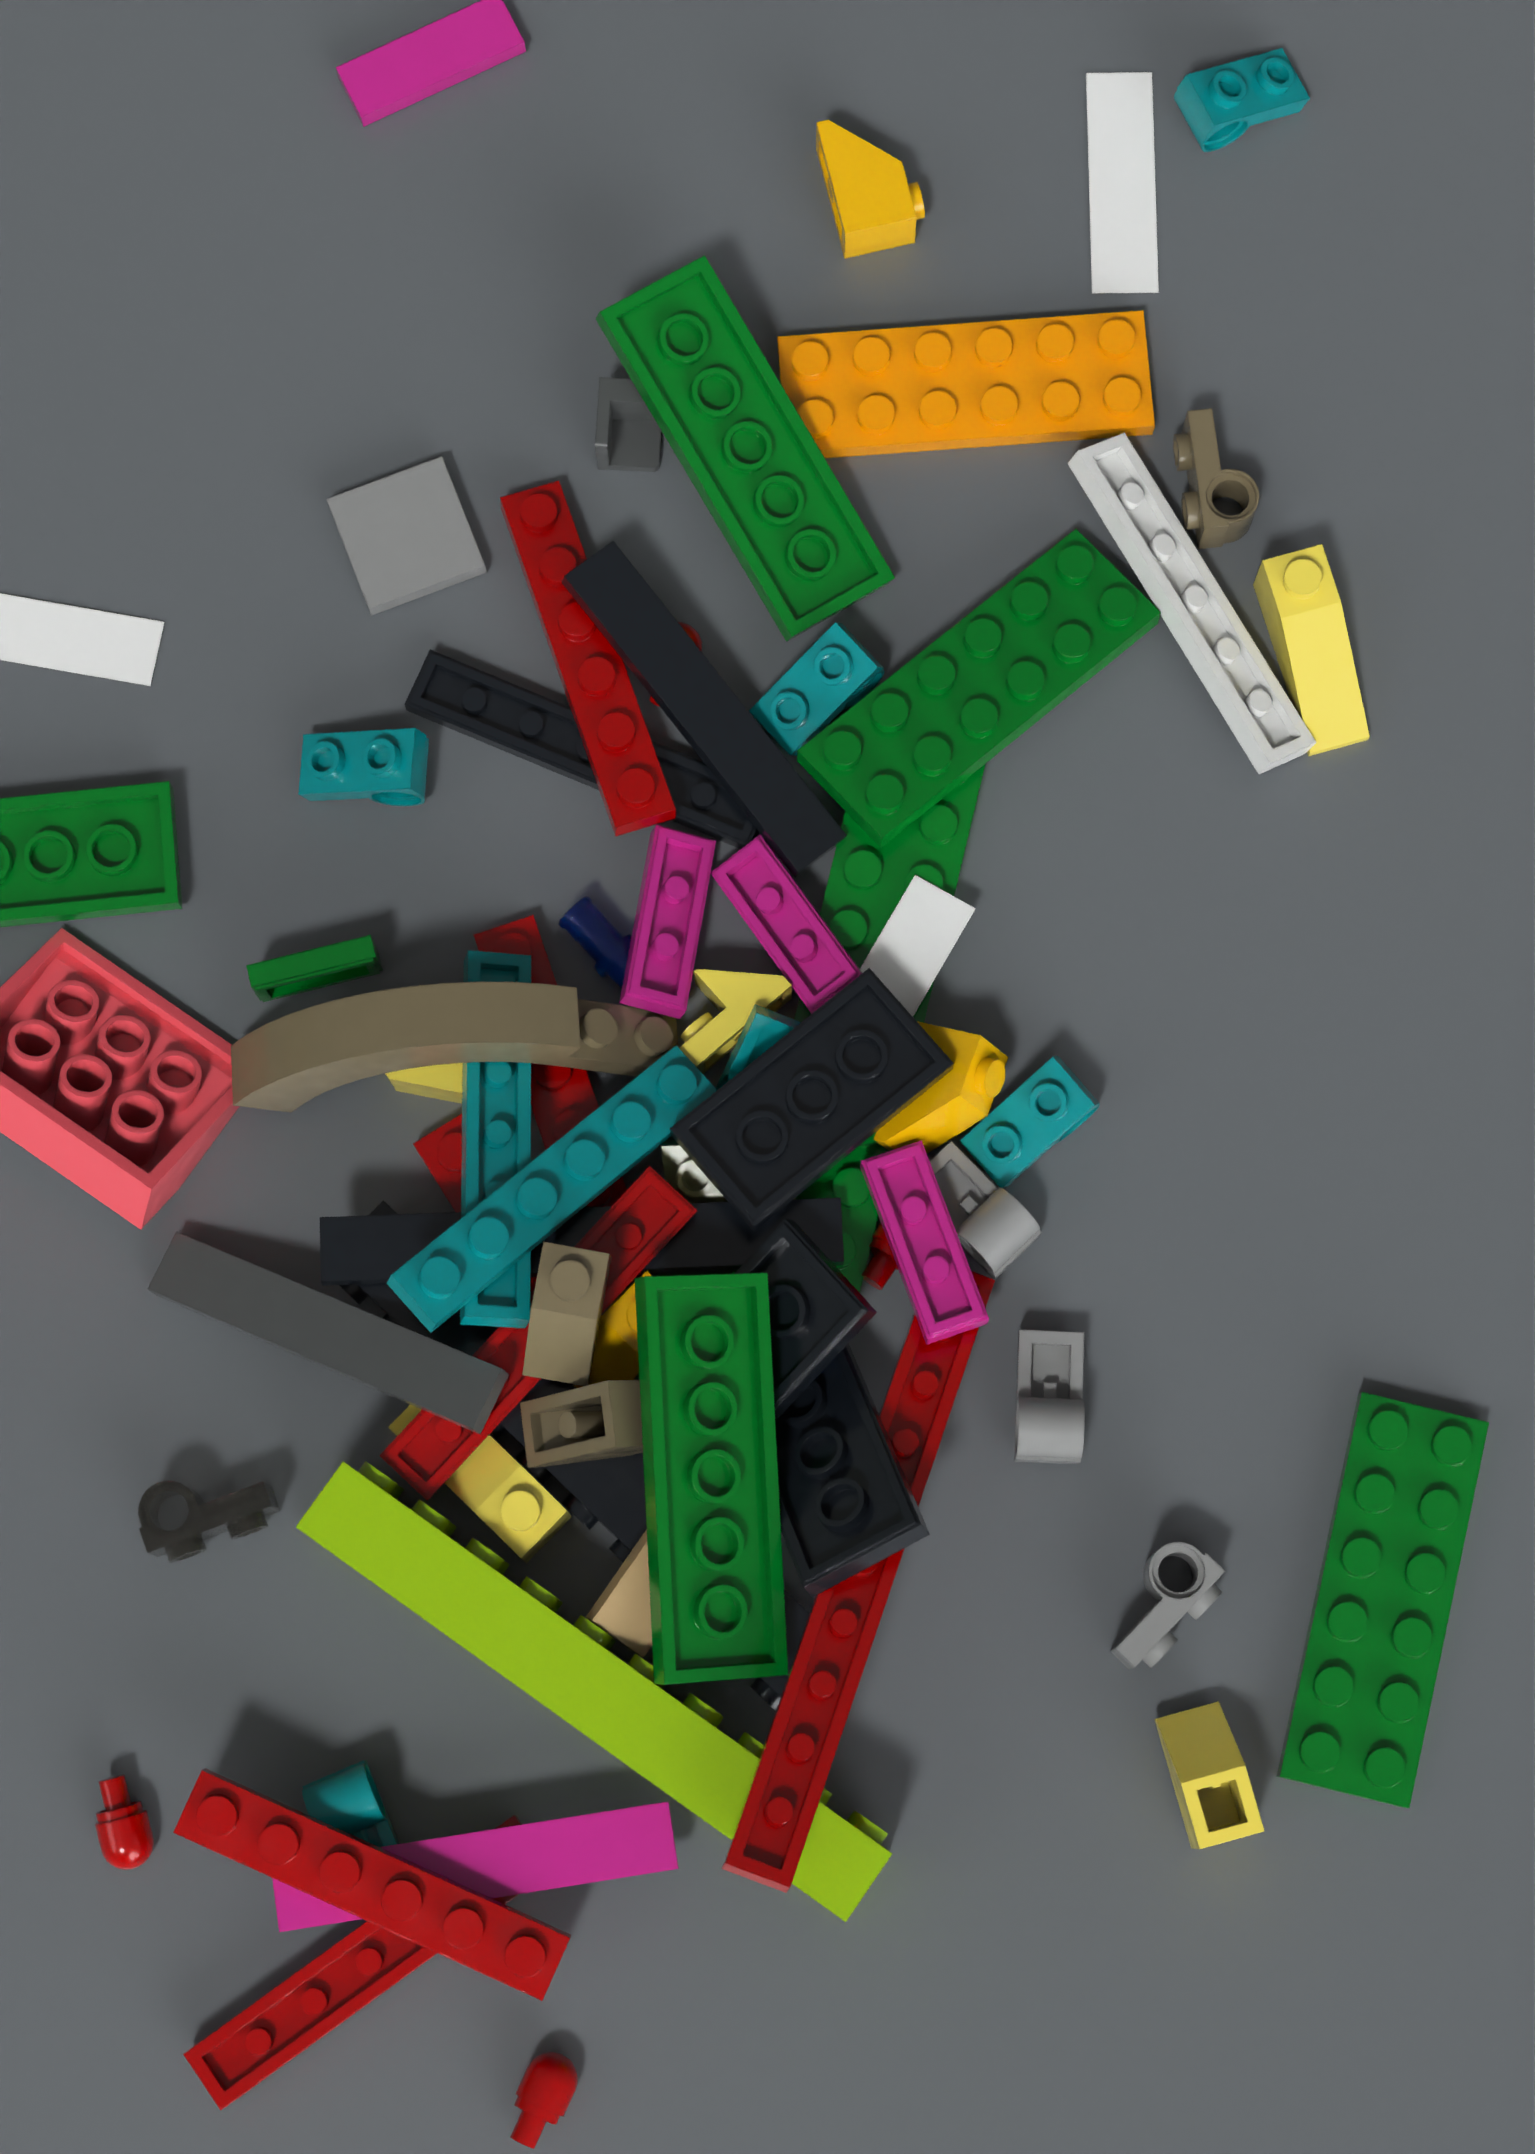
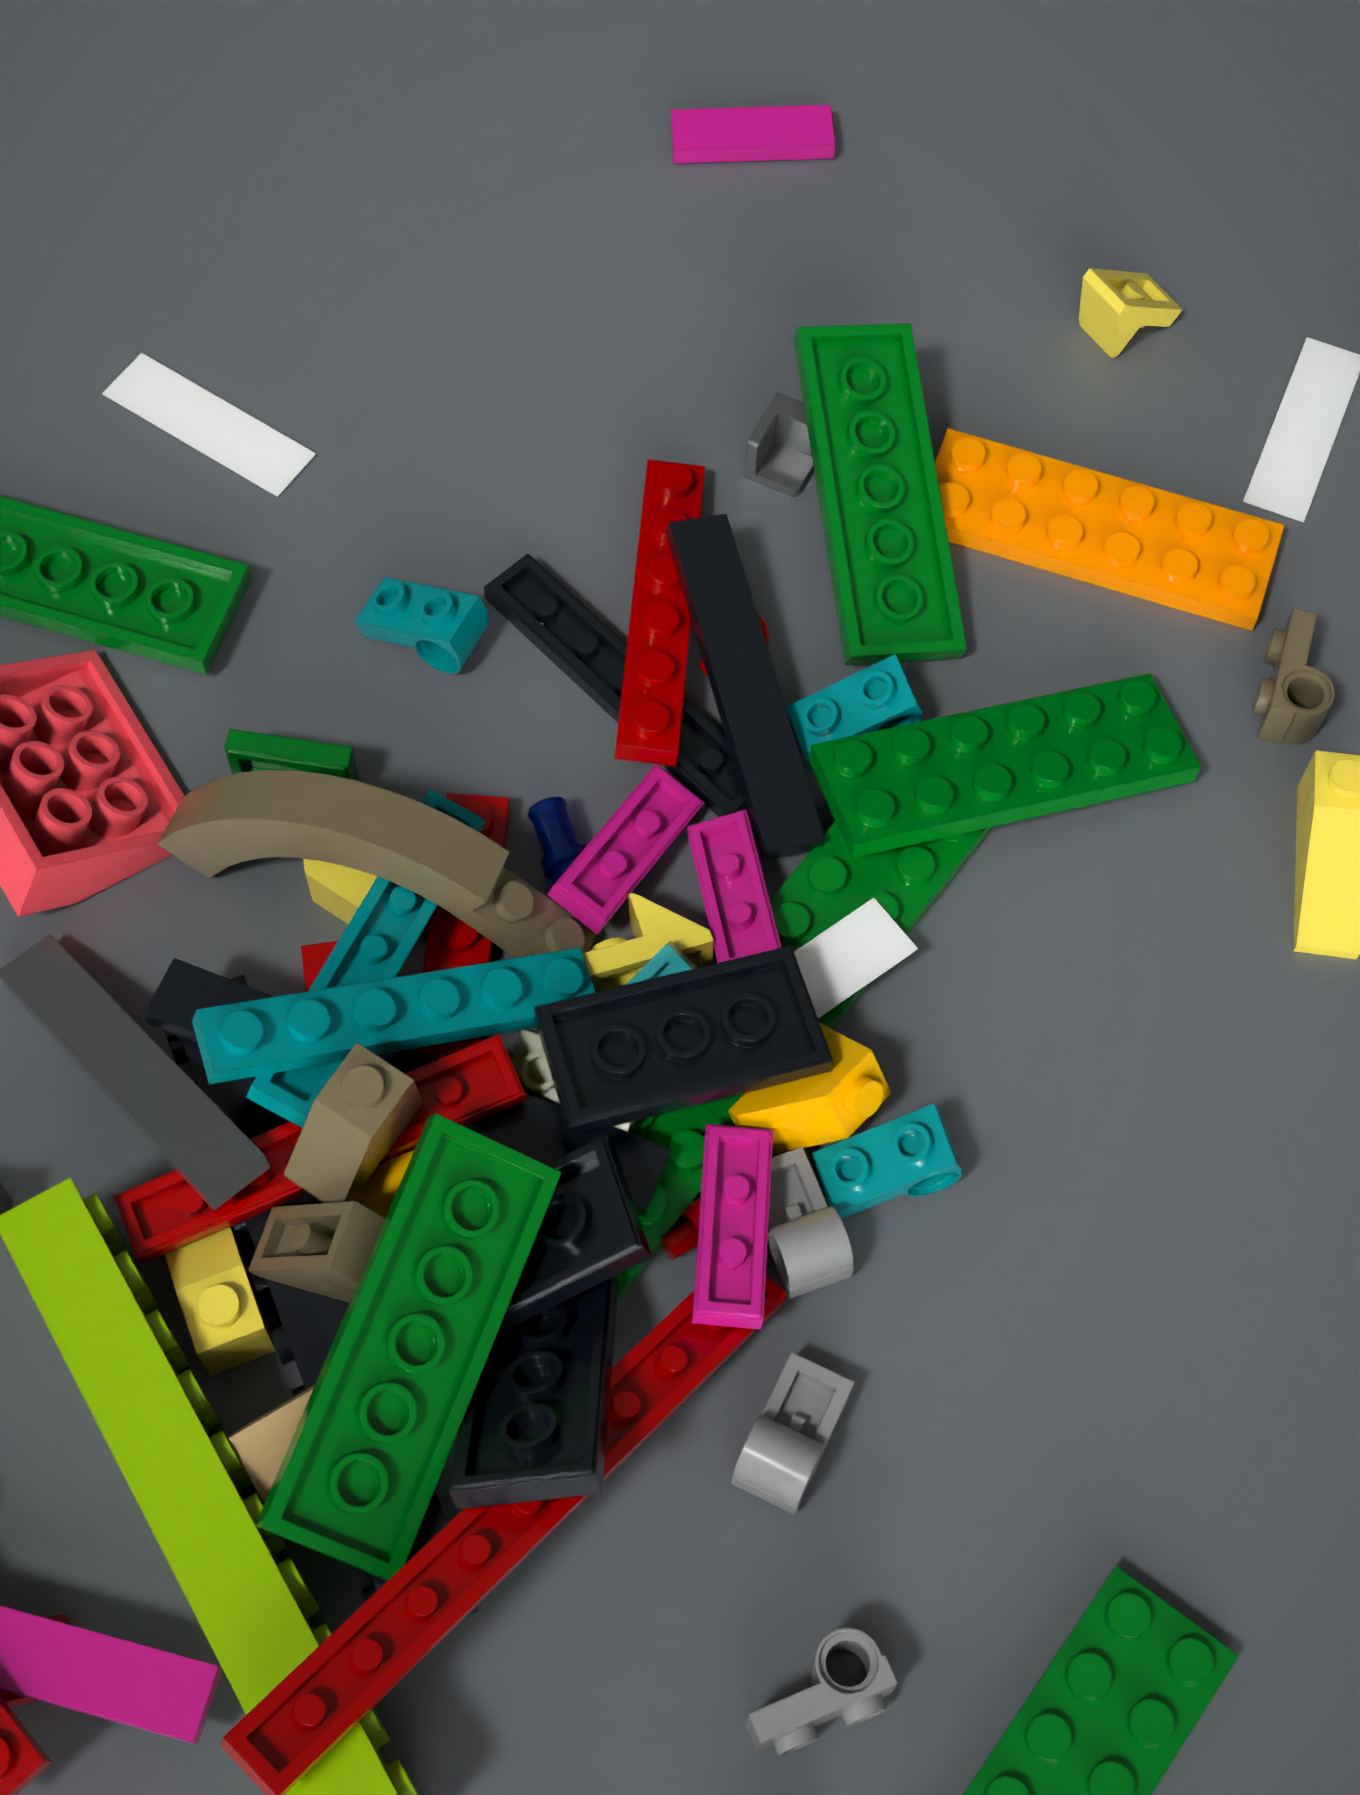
camera: 20 degrees right, 15 degrees down
(406, 535) = (553, 463): light grey tile -> none
(866, 192) = (1076, 349): yellow slope -> none
(901, 116) = (1119, 304): none -> light yellow slope
(1191, 603) = (1234, 777): white plate -> none

